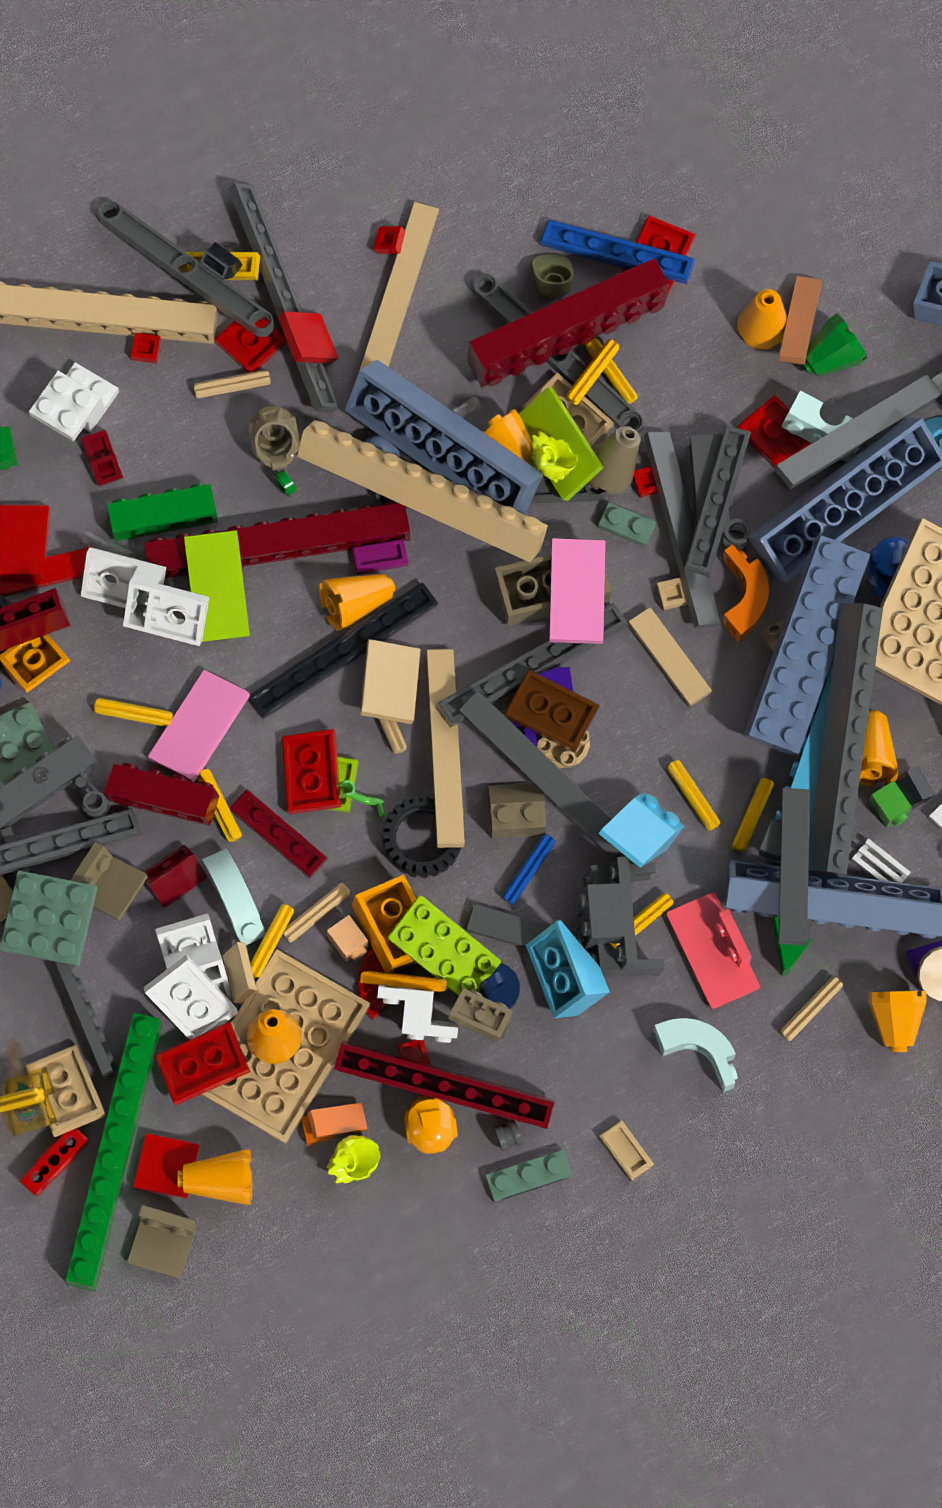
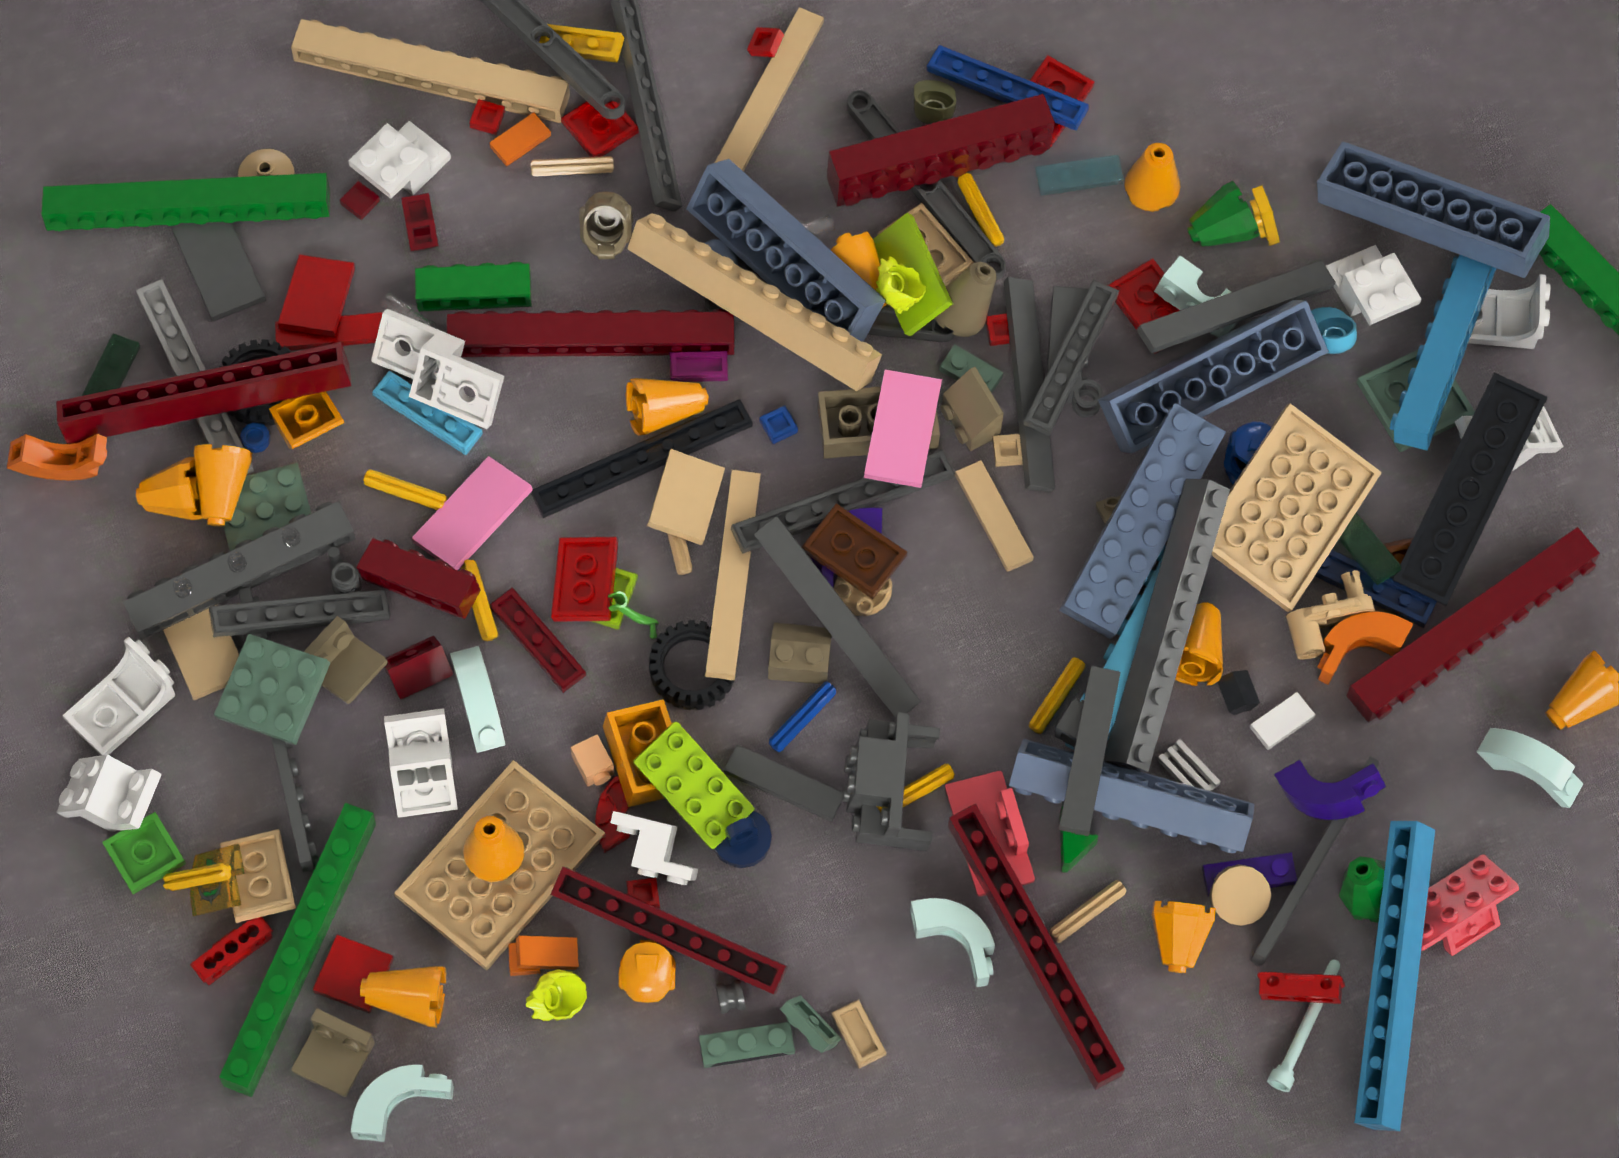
camera: 10 degrees right, 5 degrees down
(43, 444) = (359, 200): none -> dark red tile
(167, 650) = (447, 427): none -> medium azure tile
(179, 365) = (520, 139): none -> orange tile
(190, 998) = (409, 797): white plate -> none
(202, 1063) = (411, 869): red tile -> none
(216, 1269) = (390, 1089): none -> light aqua arch
(217, 573) = (519, 355): lime tile -> none
(220, 262) = (580, 37): black piece -> none
(239, 972) = (468, 778): tan tile -> none
(271, 939) = (508, 750): yellow axle -> none
(285, 483) = (609, 275): green tile -> none
(308, 337) = (660, 128): red tile -> none
(316, 912) = (563, 728): tan axle -> none
(404, 981) = (644, 812): light orange tile -> none
(461, 600) = (778, 424): none -> blue tile
(481, 1015) = (722, 860): dark tan bracket -> none
(566, 971) = (823, 829): medium azure slope -> none
(583, 1149) = (811, 1024): none -> sand green plate
(592, 372) = (959, 206): yellow axle -> none
(635, 563) = (972, 410): none -> dark tan slope
(642, 829) = (932, 690): medium azure slope -> none
(693, 795) = (995, 665): yellow axle -> none
(695, 325) = (1079, 175): none -> clear light blue tile
(748, 613) = (1087, 480): orange arch -> none
(771, 1049) = (1036, 947): none -> dark red brick
(800, 320) = (1192, 184): nougat tile -> none
(871, 342) = (1264, 216): none -> yellow plate
(890, 805) = (1209, 706): bright green brick -> none

